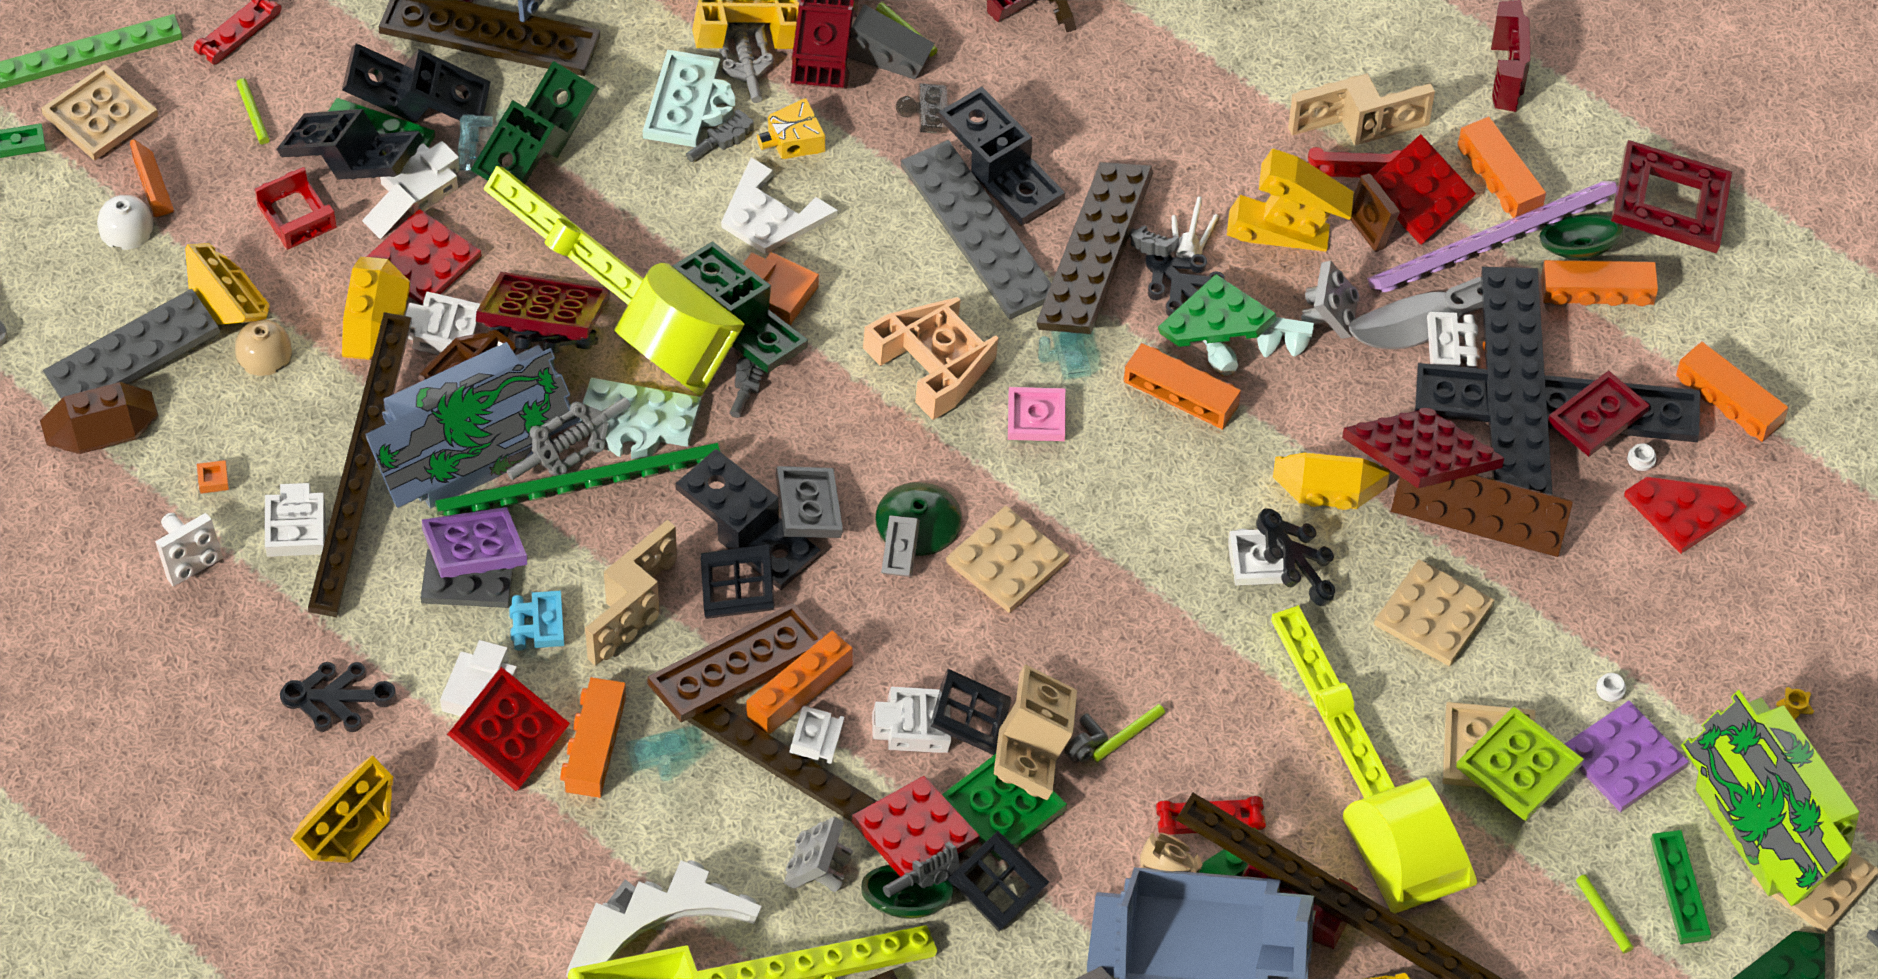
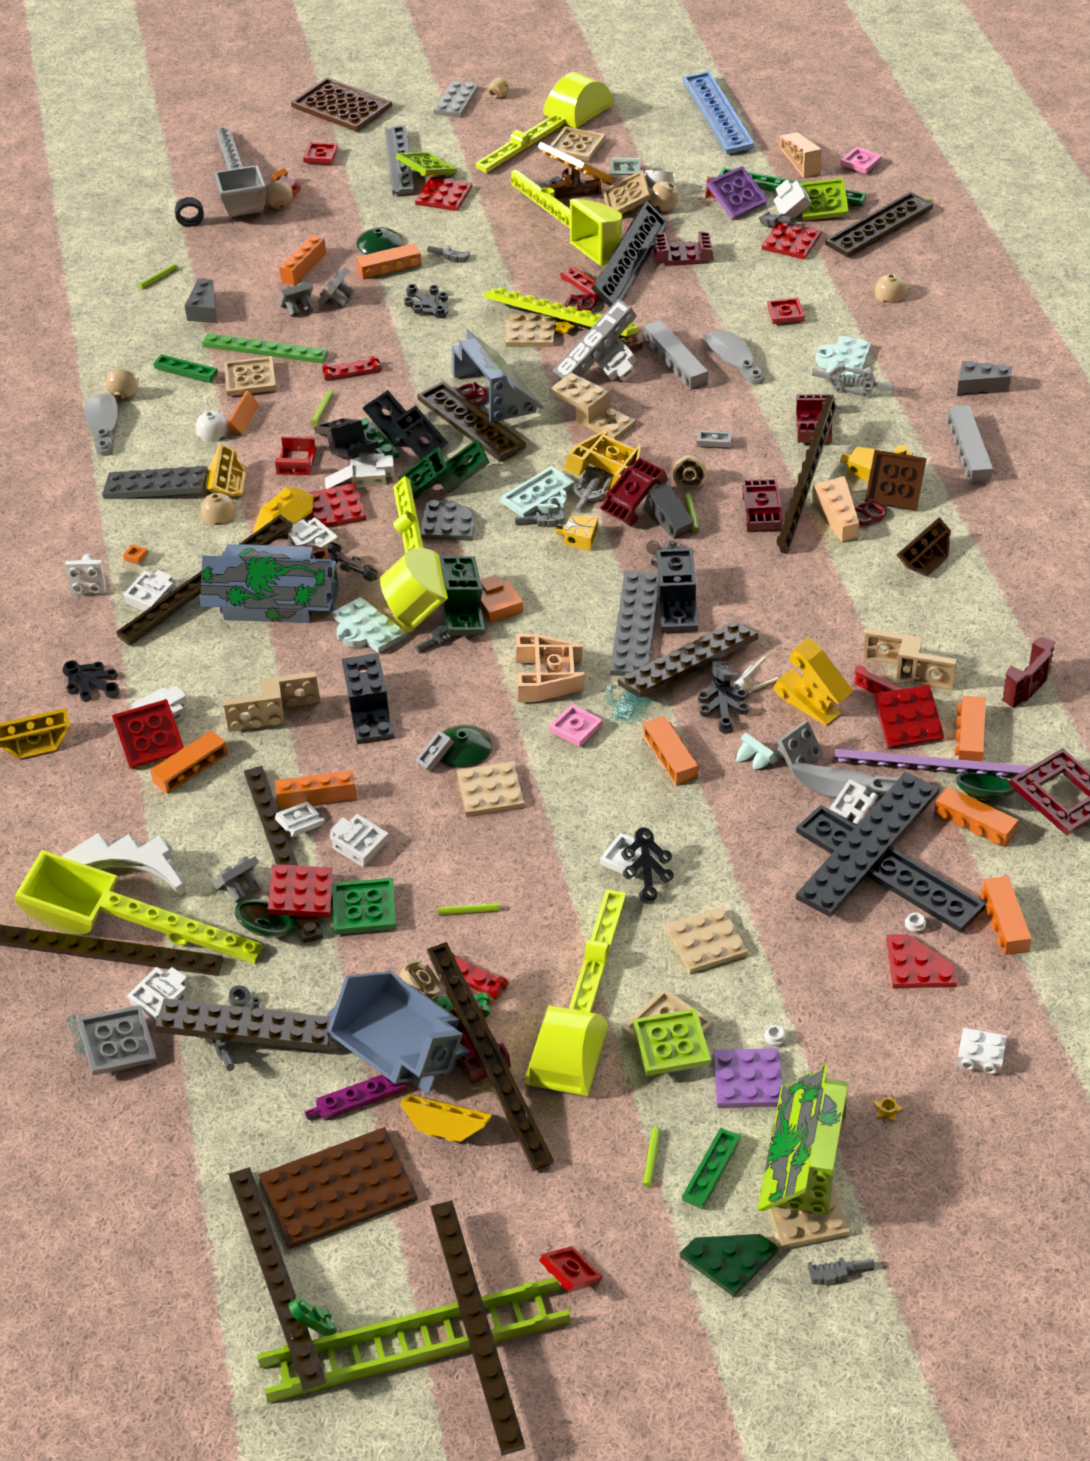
camera: 40 degrees right, 10 degrees down
(99, 418) = (113, 503): reddish brown wedge -> none
(468, 135) = (407, 460): clear light blue plate -> none
(471, 589) = (207, 659): dark grey plate -> none
(474, 542) = (220, 640): medium lavender plate -> none
(542, 305) = (360, 547): dark red plate -> none
(546, 453) = (297, 616): light grey bar -> none
(547, 620) = (223, 691): medium azure plate -> none
(565, 483) = (296, 638): green plate -> none
(599, 201) = (447, 521): none -> dark grey plate
(659, 752) = (215, 786): clear light blue plate -> none
(734, 662) = (289, 760): reddish brown plate -> none
(738, 605) = (342, 713): black piece -> none
(765, 221) = (524, 567): white wing -> none
(808, 502) = (408, 706): dark grey plate -> none
(927, 872) = (280, 913): dark grey piece -> none
(964, 731) = (403, 841): black piece -> none
(980, 898) = (338, 938): black piece -> none
(1035, 732) = (408, 875): tan bracket -> none
(1082, 746) = (432, 899): dark grey plate -> none
(1216, 315) = (721, 721): plate -> none
(1221, 358) = (708, 746): light aqua piece -> none
(1330, 479) = (710, 839): yellow wedge -> none
(1373, 212) = (865, 713): reddish brown plate -> none
(1423, 447) = (771, 843): dark red plate -> none
(1489, 510) = (785, 896): reddish brown plate -> none
(1598, 413) = (903, 882): dark red plate -> none
(1837, 575) = (981, 1051): none -> white plate

